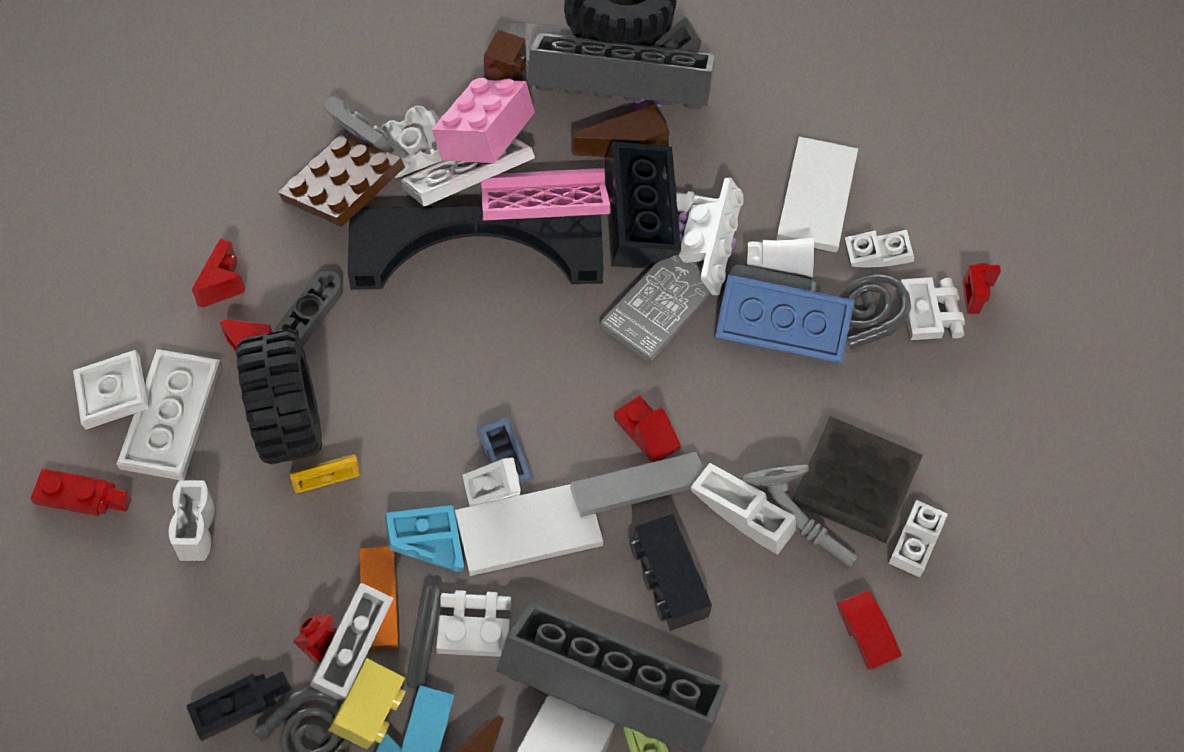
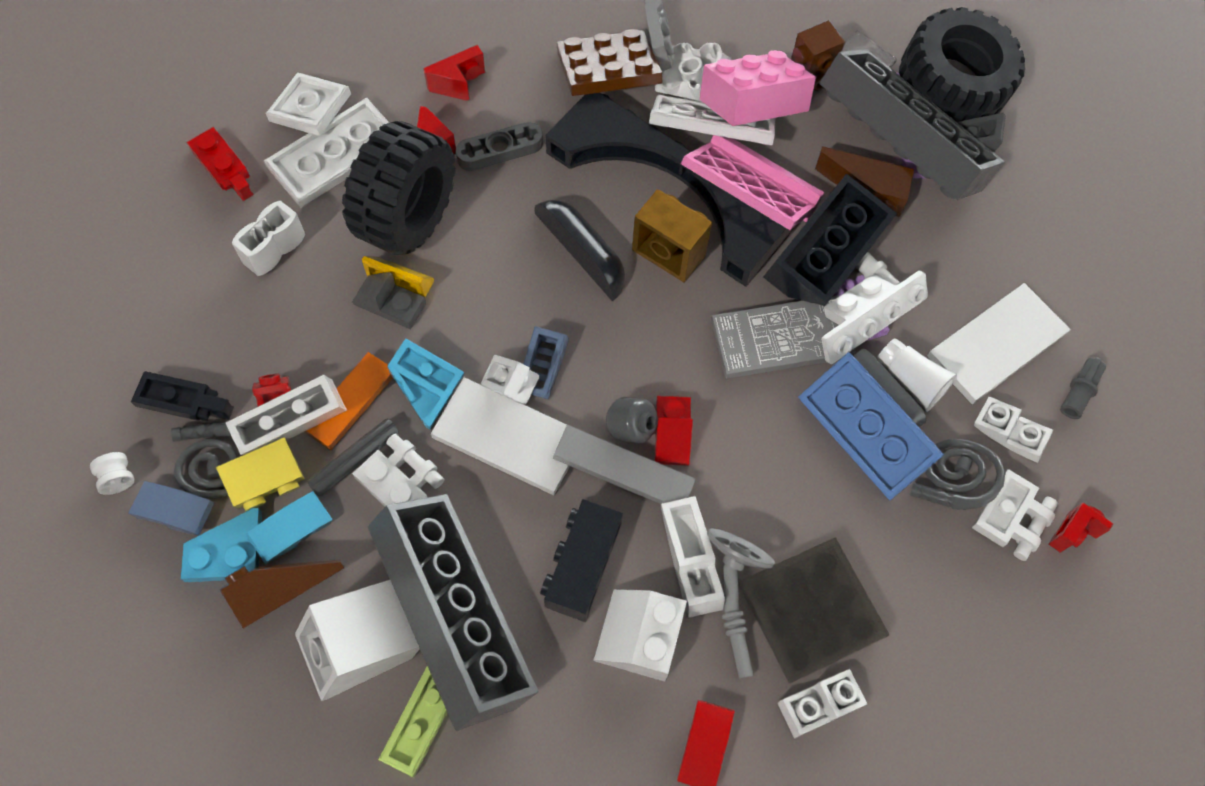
camera: 40 degrees right, 5 degrees up
(334, 498) = (388, 300): none -> dark grey slope
(451, 340) = (583, 244): none -> black brick
(520, 282) = (671, 235): none -> pearl gold brick
(614, 442) = (632, 419): none -> dark grey head
(758, 588) = (641, 632): none -> white slope
(900, 185) = (1083, 388): none -> dark grey axle

